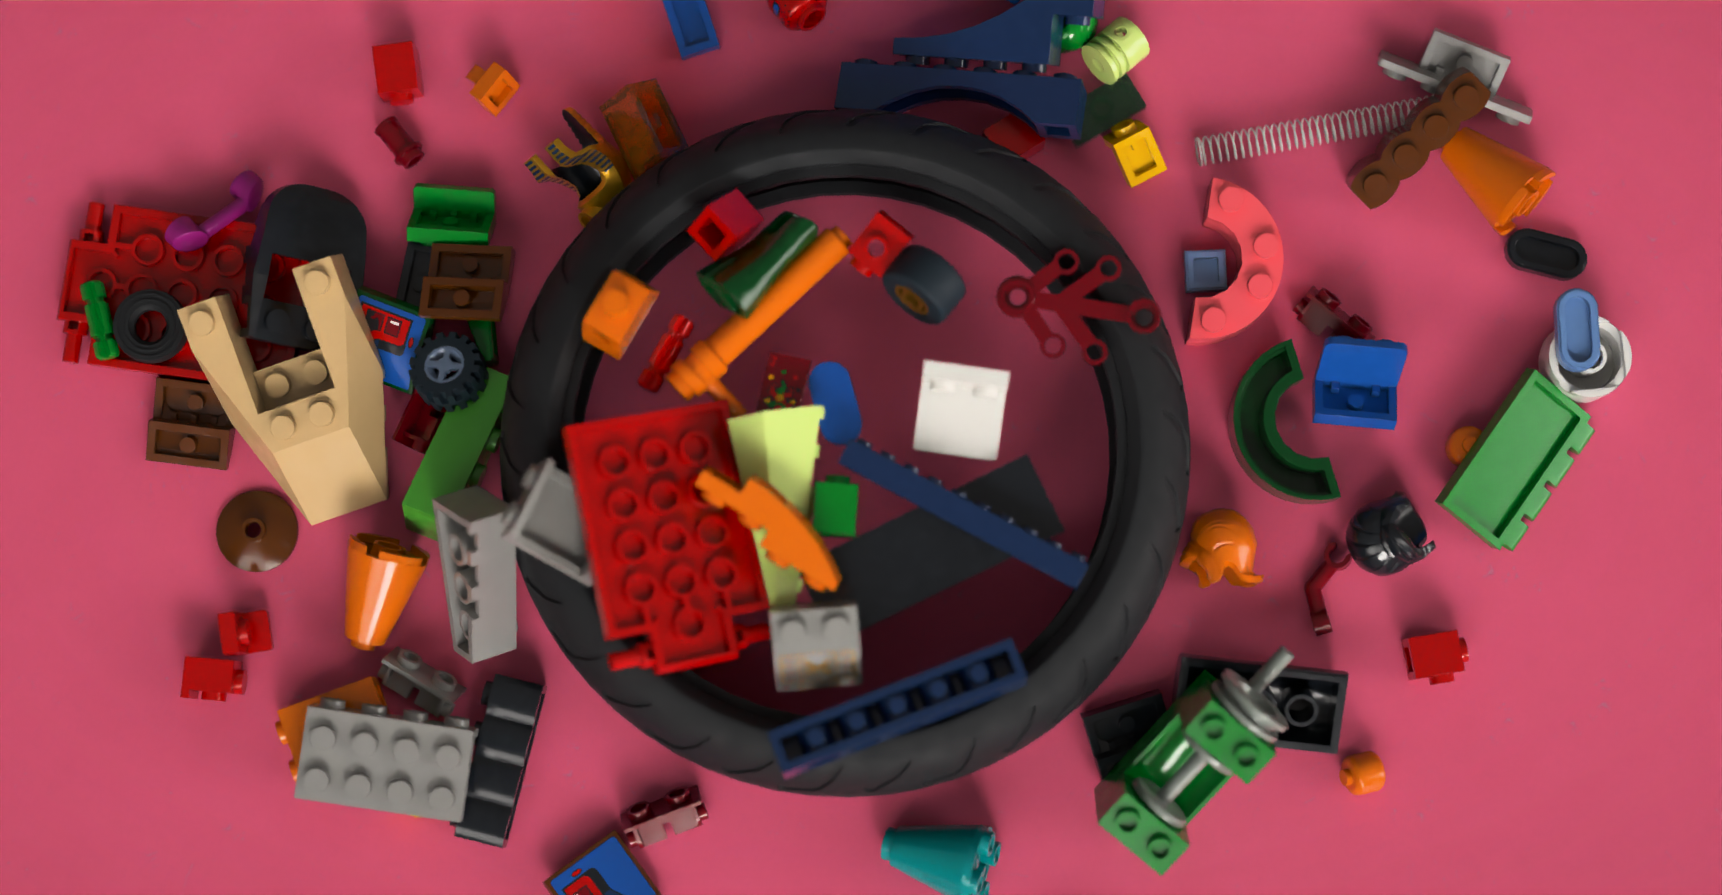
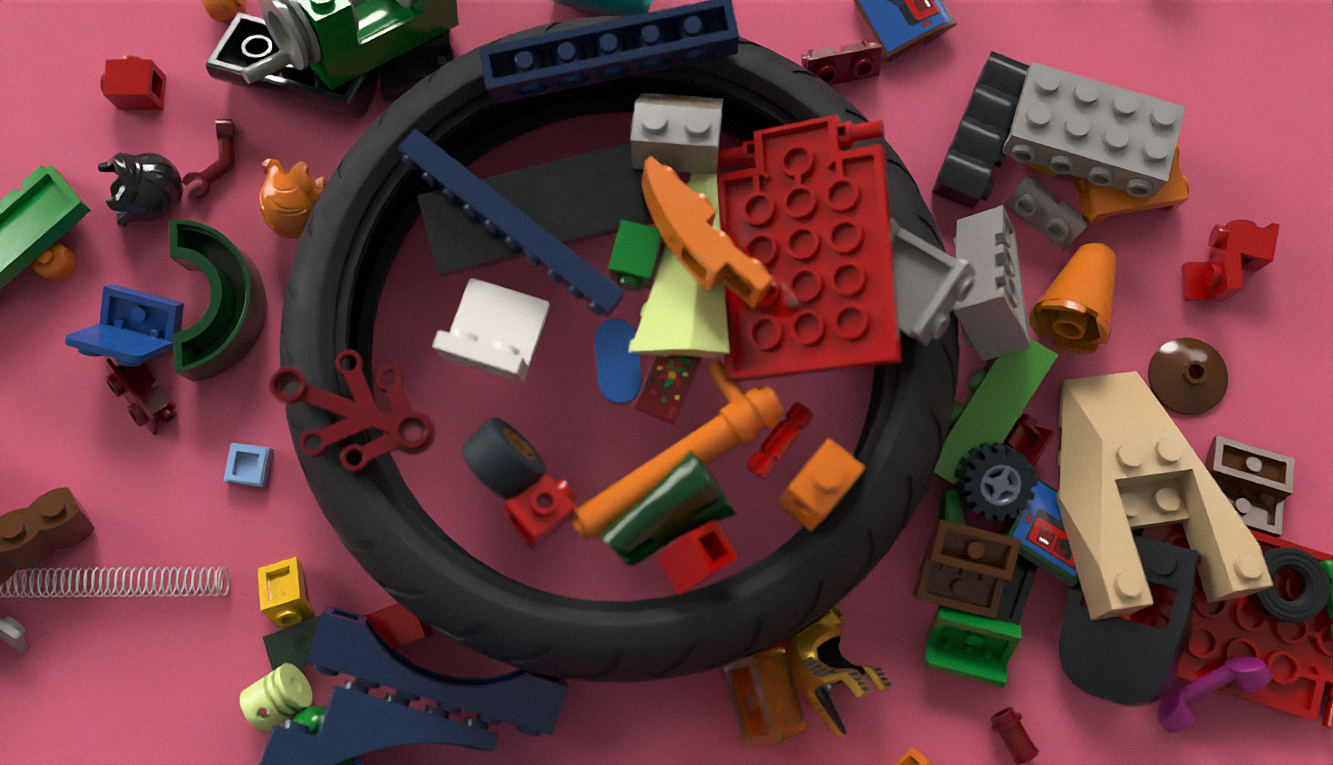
camera: 170 degrees left, 5 degrees down
(1259, 265) = (195, 454): coral brick -> none

